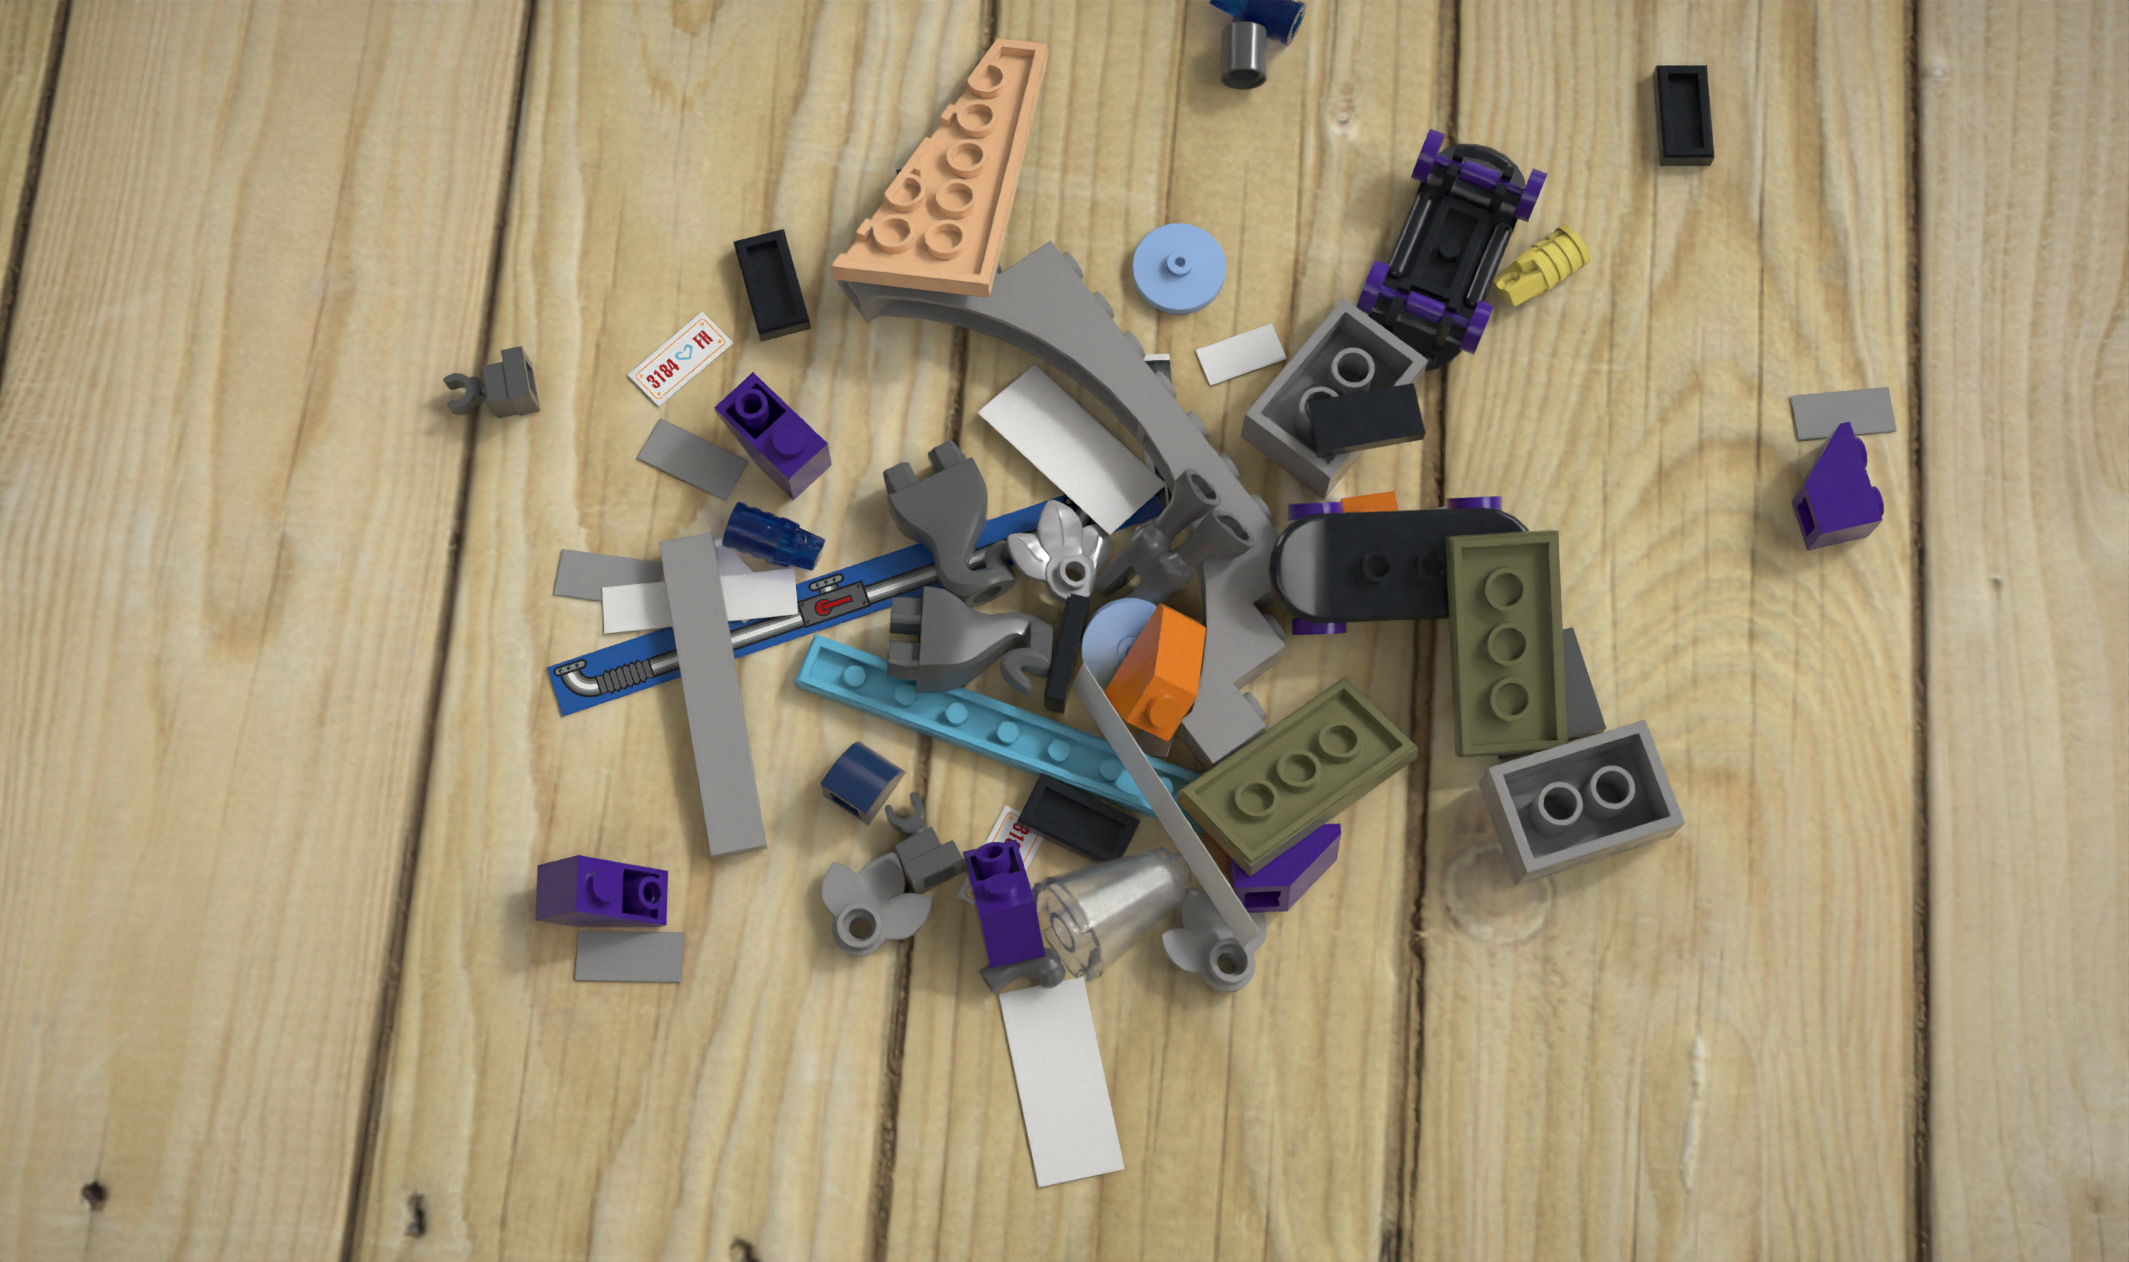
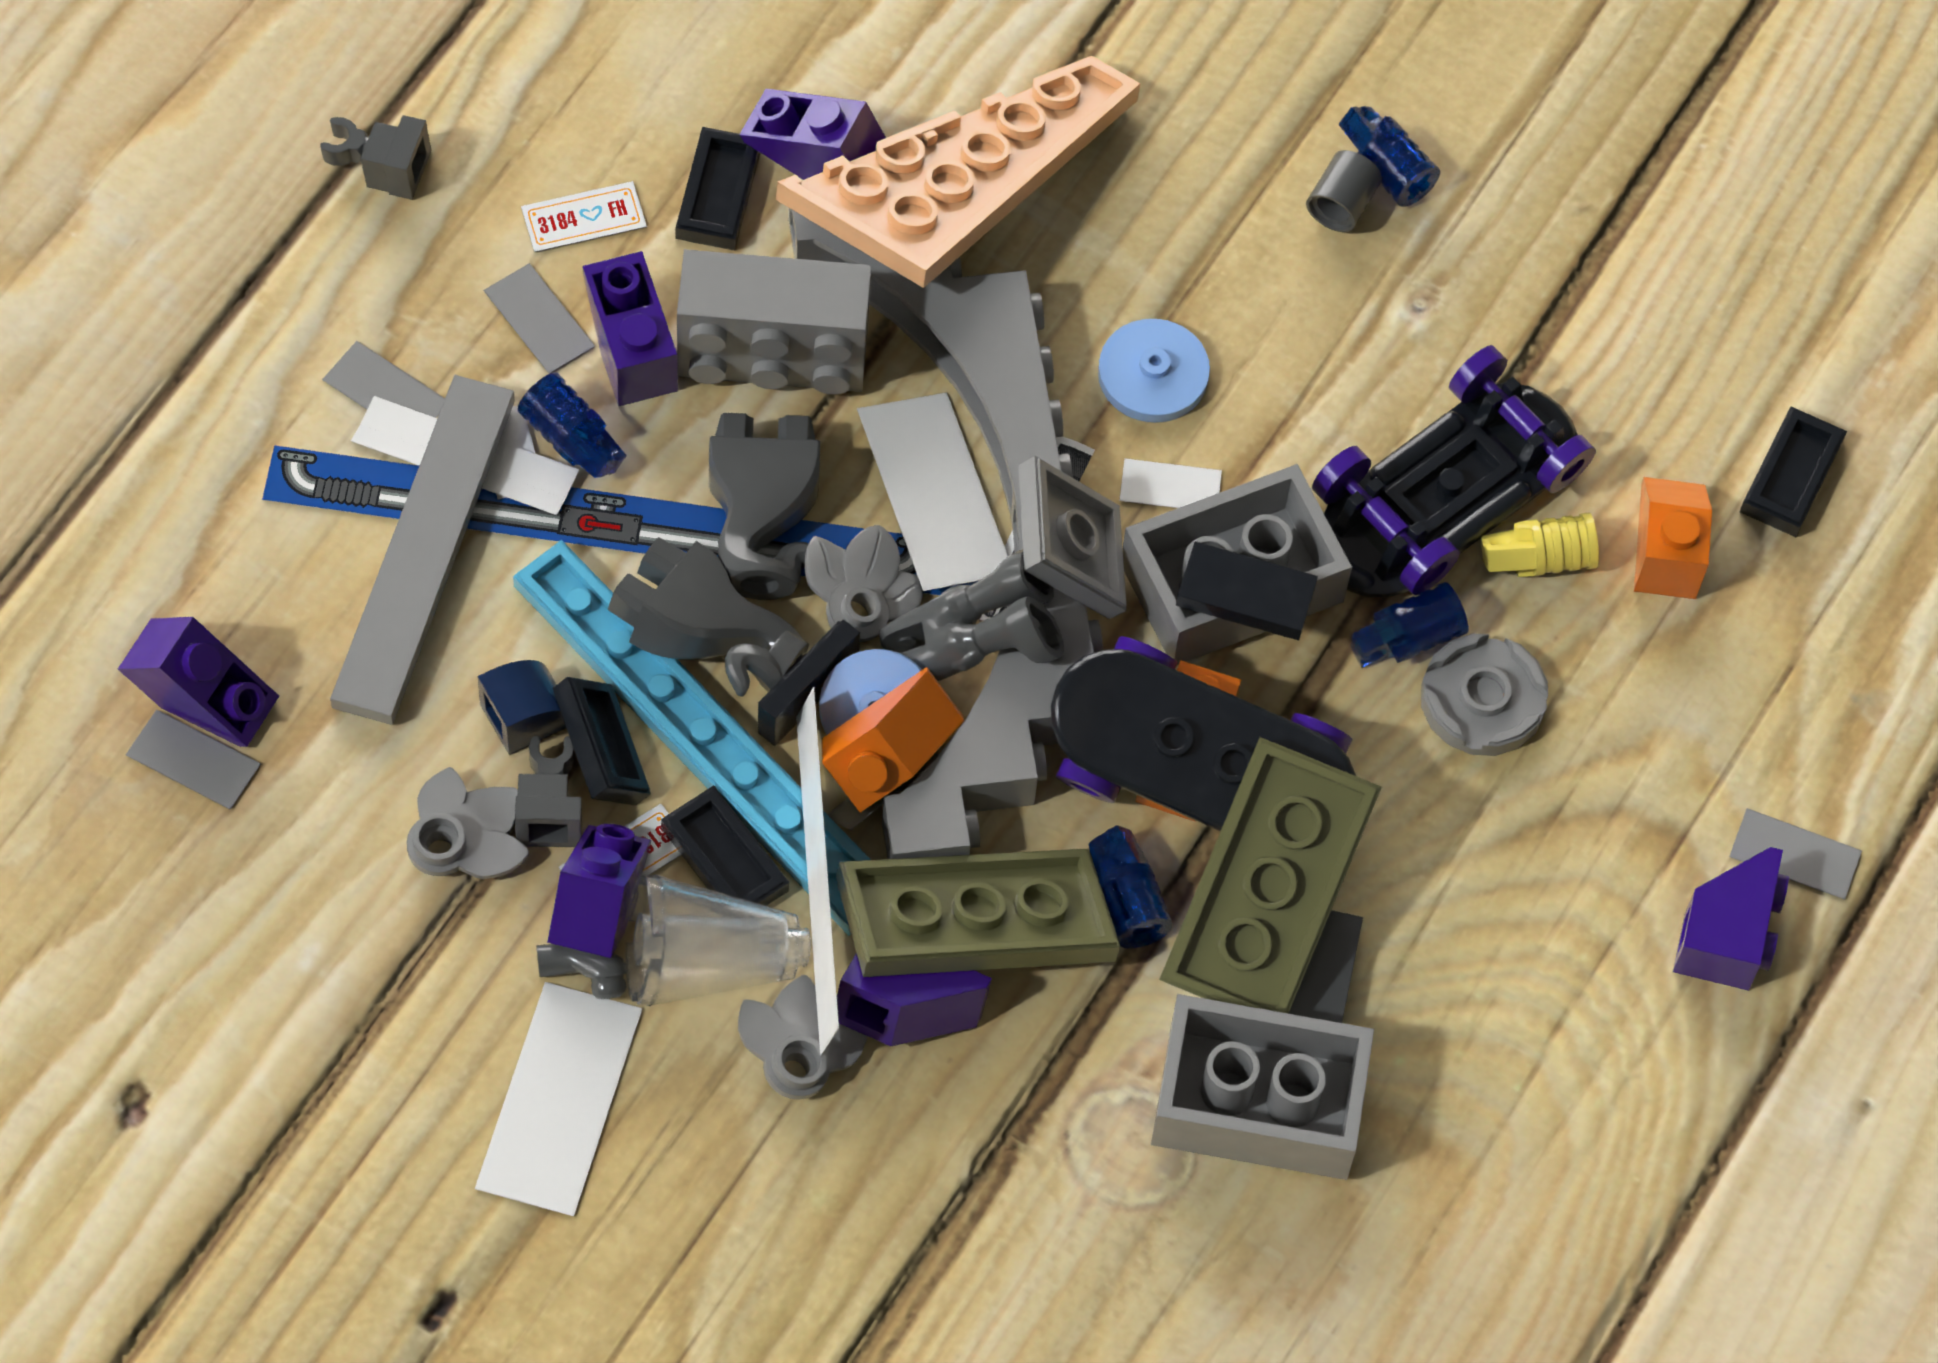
camera: 25 degrees right, 10 degrees down
(824, 207) = (810, 130): none -> dark purple slope
(884, 377) = (773, 321): none -> light grey brick
(938, 782) = (601, 741): none -> black tile
(1208, 441) = (1072, 537): none -> light grey tile
(1391, 691) = (1129, 888): none -> clear blue hinge
(1483, 377) = (1411, 627): none -> clear blue hinge
(1560, 404) = (1484, 695): none -> light grey tile
(1630, 210) = (1672, 538): none -> orange slope

